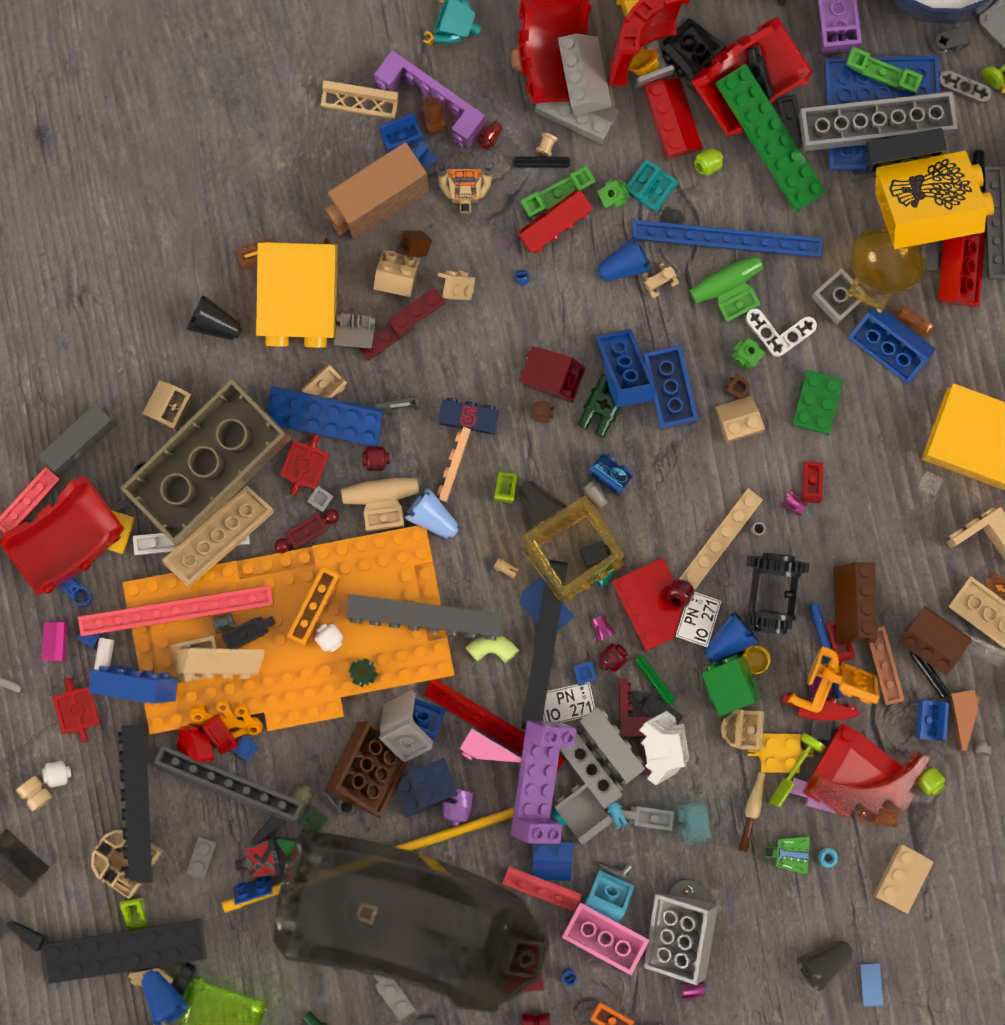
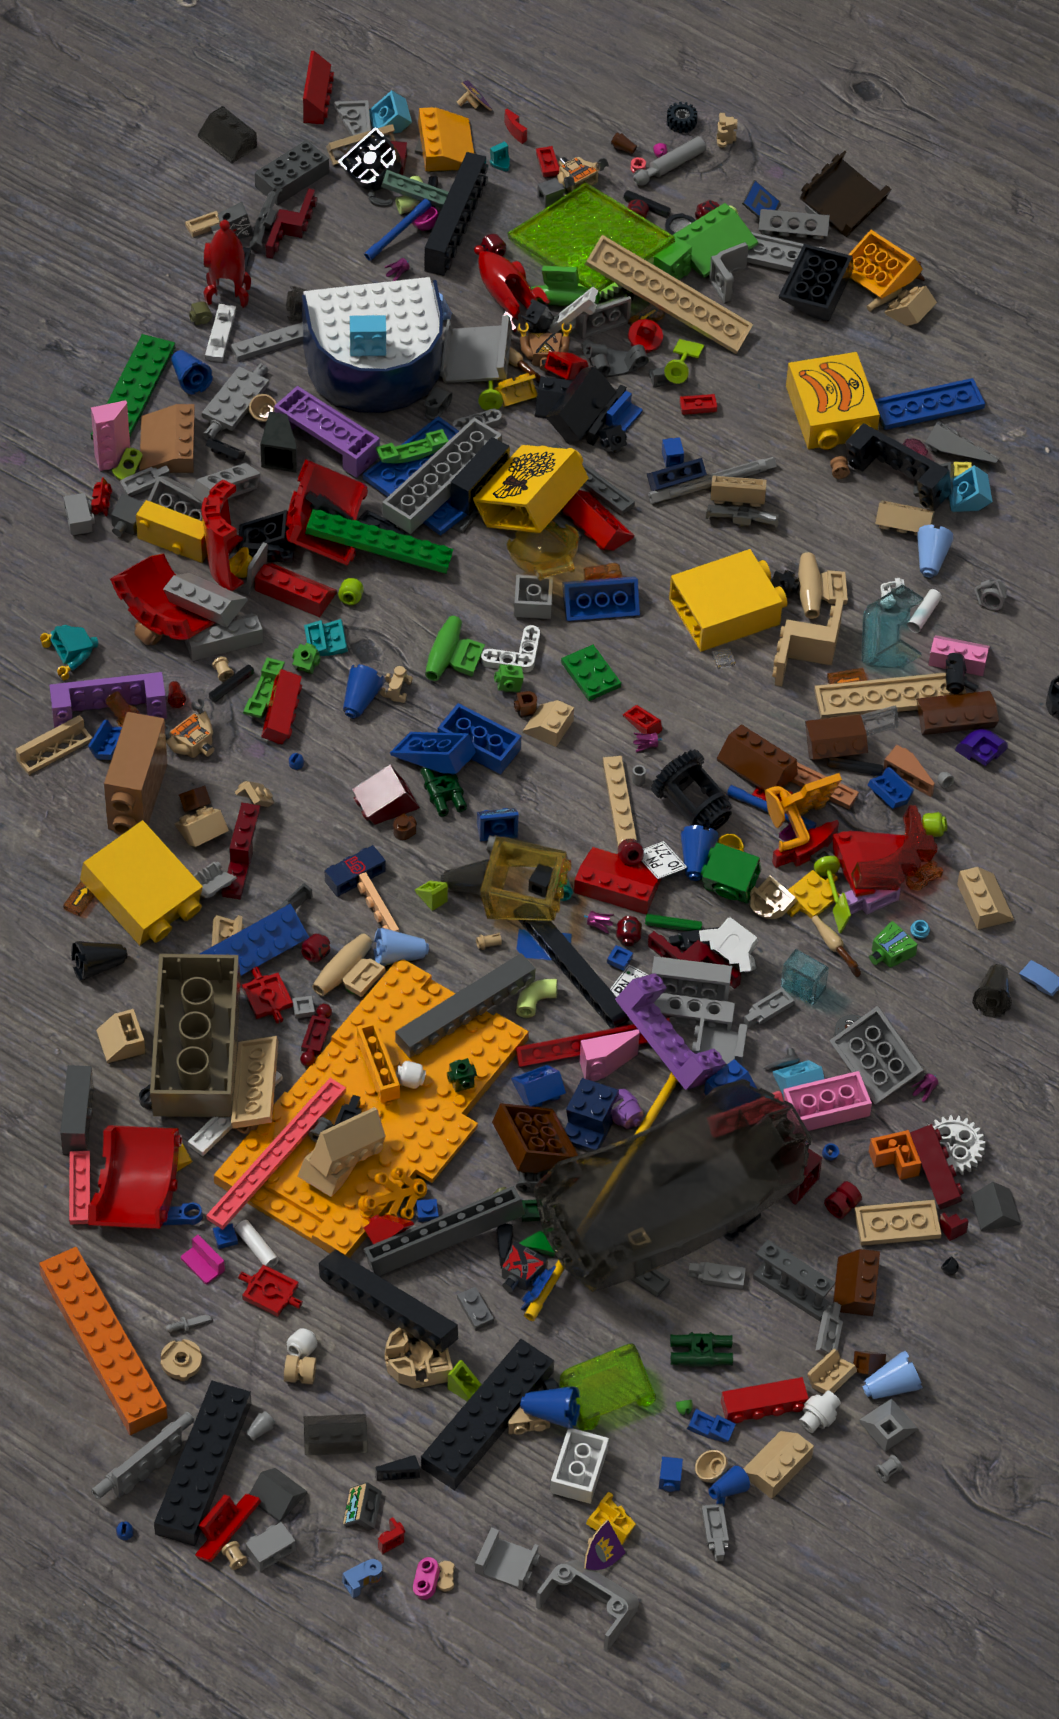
camera: 45 degrees left, 30 degrees down
(133, 684) = (298, 1220): blue brick -> none
(219, 734) = (398, 1206): red tile -> none
(400, 731) = (532, 1088): light grey piece -> none
(616, 814) = (744, 1018): medium azure pin -> none
(727, 238) = (418, 624): blue plate -> none

